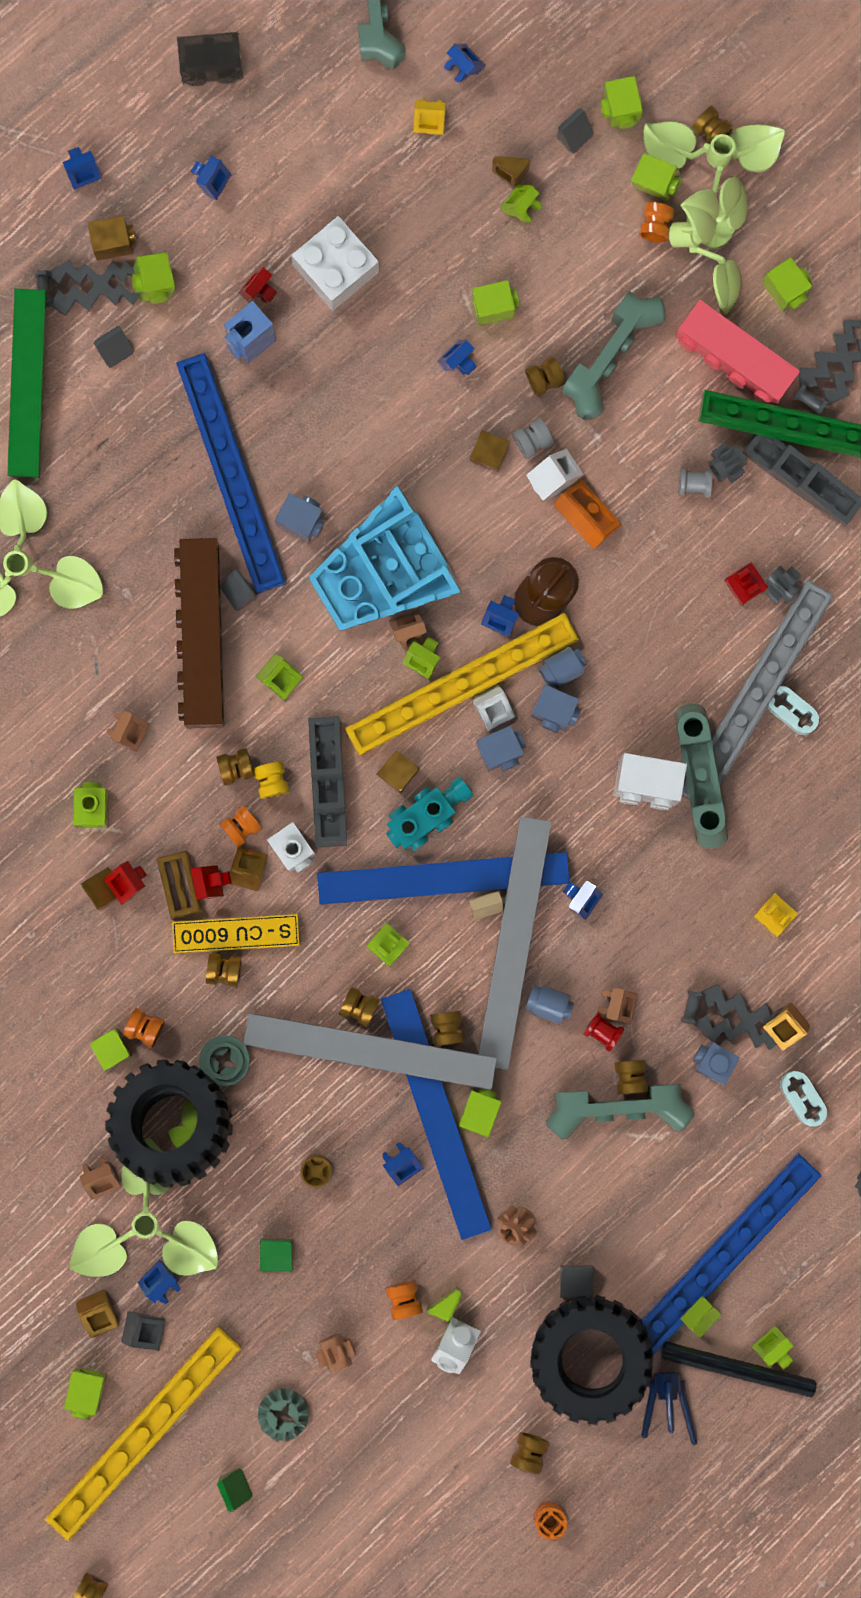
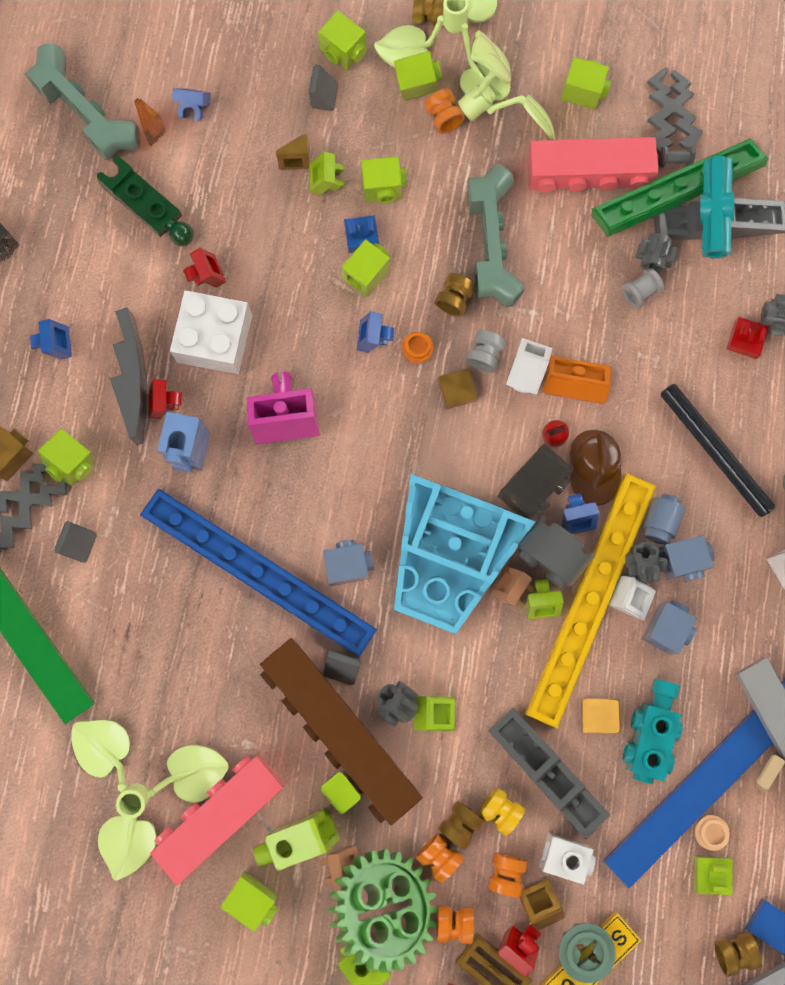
camera: 35 degrees left, 5 degrees down
(45, 701) = (250, 902): none -> lime brick
(66, 626) = (217, 819): none -> coral brick
(112, 684) = (298, 840): none -> lime torso
(123, 803) = (392, 943): none -> bright green gear
(166, 676) = (340, 792): none -> lime slope
(176, 830) = (463, 924): none -> orange wheel
(202, 779) = (442, 859): none -> orange wheel
(244, 258) = (131, 385): none -> dark grey slope
(257, 645) = (397, 703): none -> dark grey gear
(261, 906) = (587, 969): none -> sand green gear
(340, 367) = (284, 413): none -> dark pink brick
(365, 121) = (146, 203): none -> dark green plate
(369, 209) = (205, 269): none -> red tile
(411, 915) = (711, 832): none -> light nougat plate
(417, 56) = (150, 122): none -> clear orange slope
(429, 117) = (197, 162): yellow tile -> none
(458, 626) = (555, 552): none -> dark grey brick
(484, 395) = (417, 347): none -> orange plate
(489, 567) = (535, 482): none -> clear smoke brick
(514, 270) = (360, 229): none -> blue tile
(522, 688) = (646, 562): none -> dark grey gear
(533, 547) = (557, 439): none -> red hinge
(562, 241) = (383, 179): none -> lime brick
(649, 649) = (717, 450): none -> black axle
(798, 463) = (717, 207): none -> teal piece

